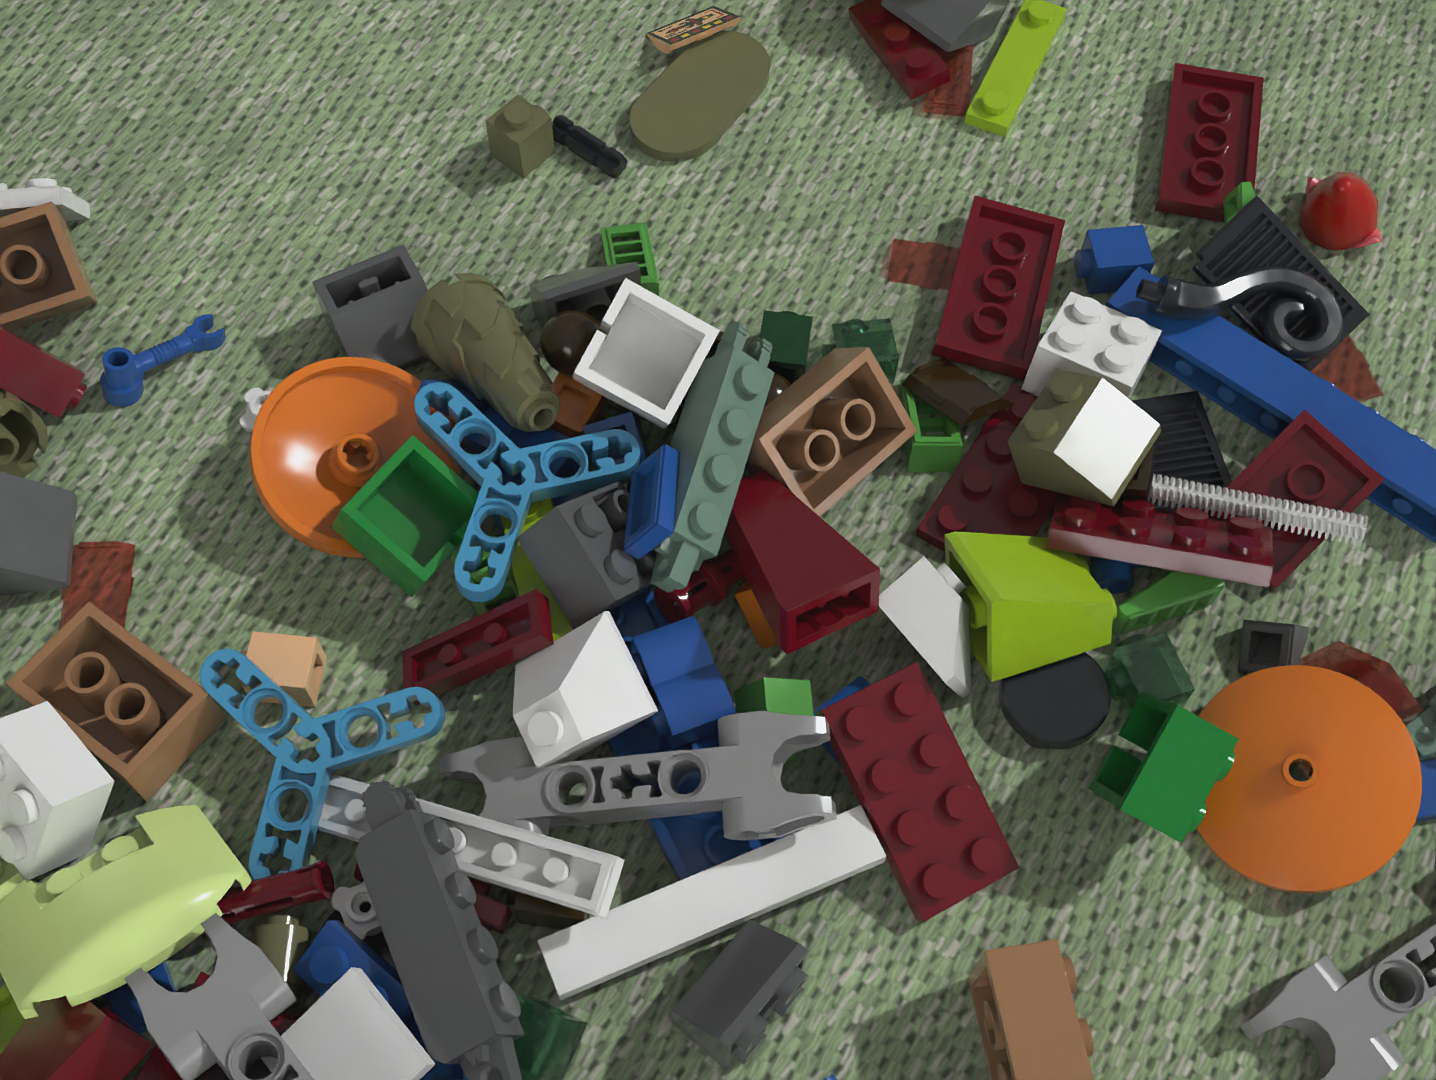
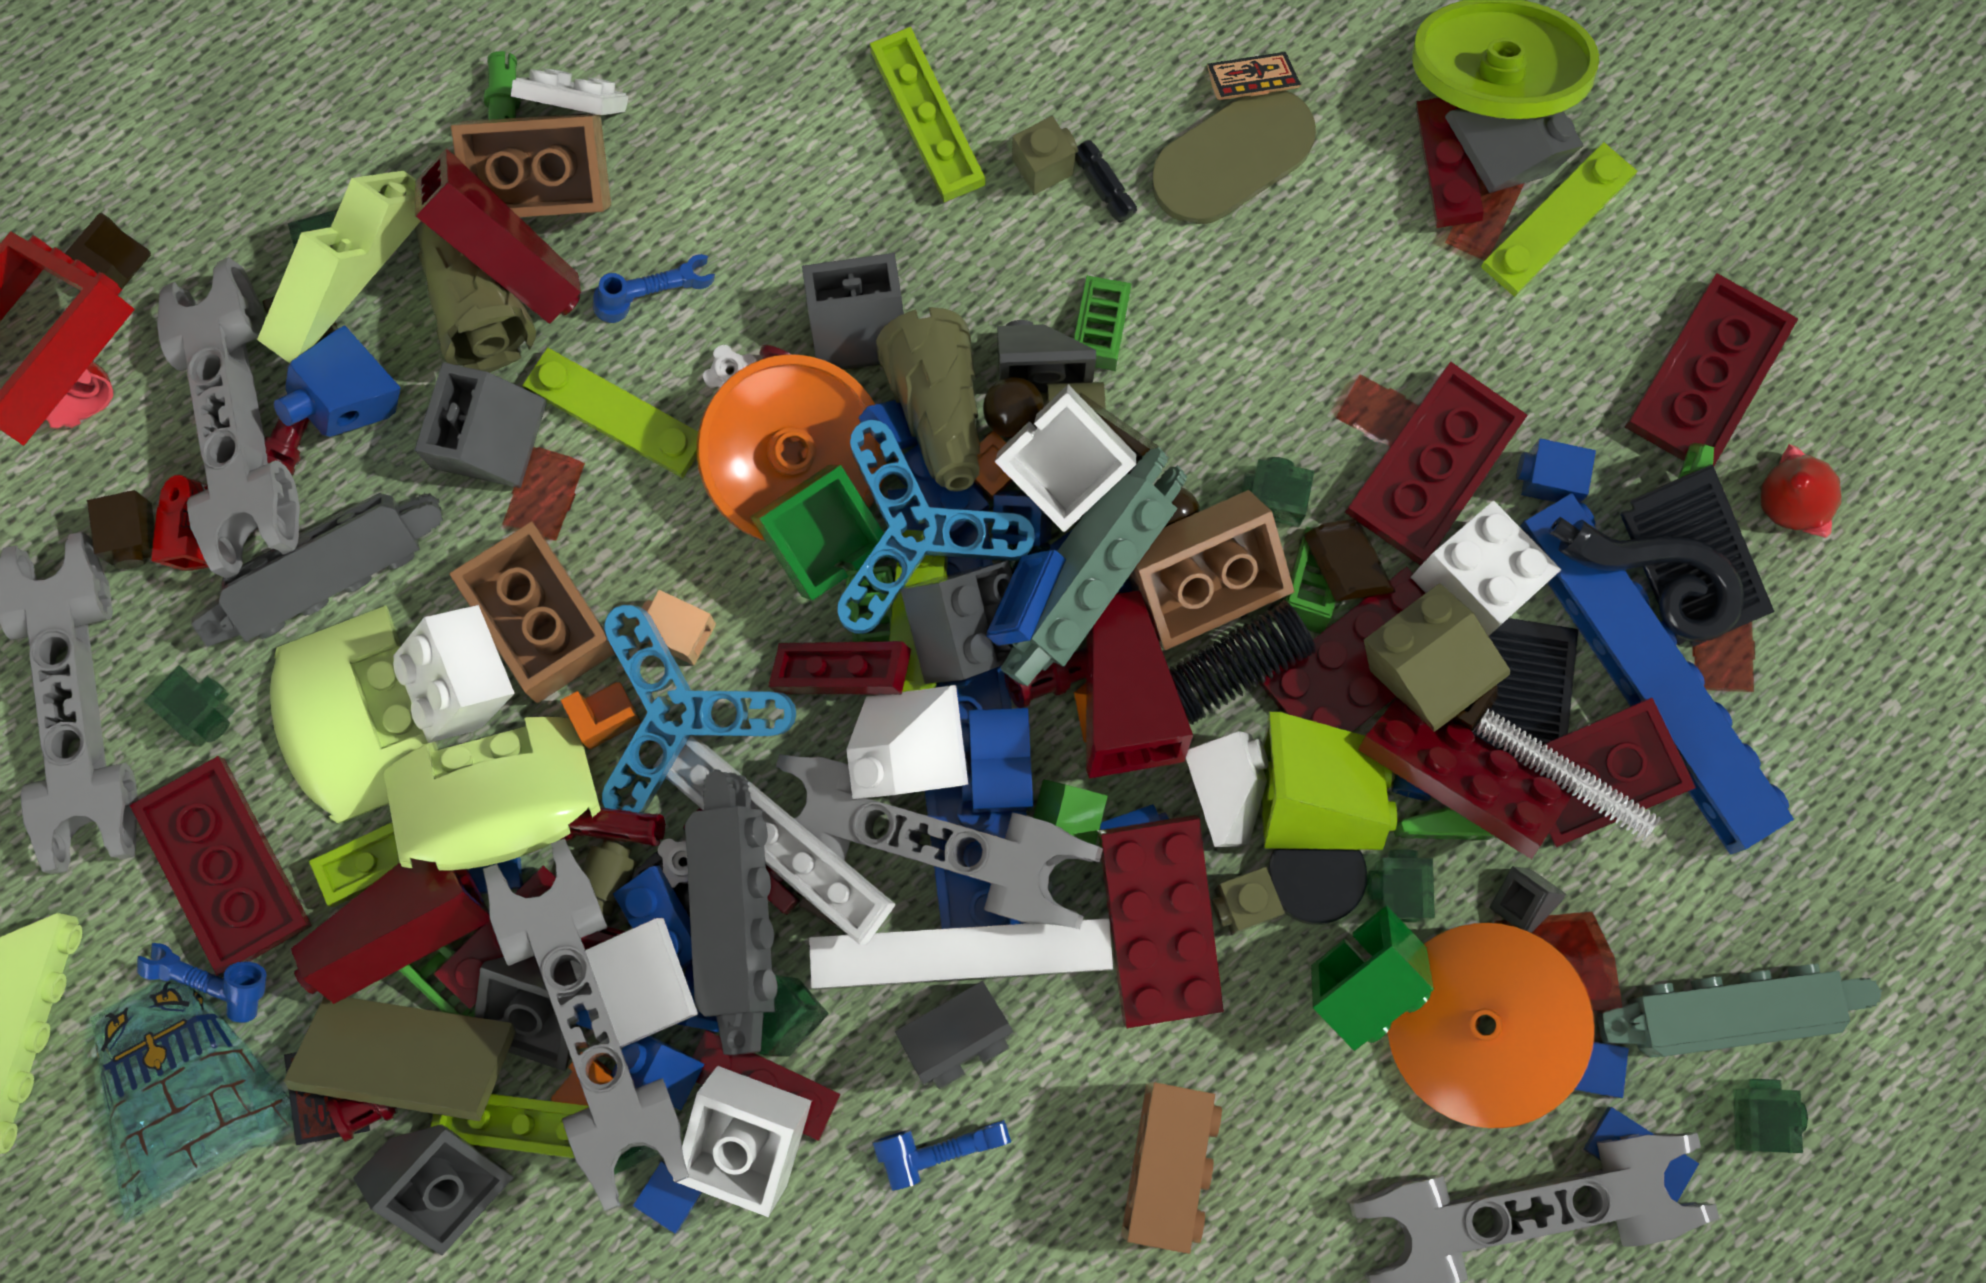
camera: 20 degrees right, 15 degrees up
(155, 485) = (614, 412): none -> lime plate
(225, 789) = (601, 714): none -> orange panel
(396, 137) = (927, 114): none -> lime plate
(790, 342) = (1210, 462): dark green brick -> none
(918, 467) = (1294, 633): none -> black piece
(998, 741) = (1247, 901): none -> olive brick

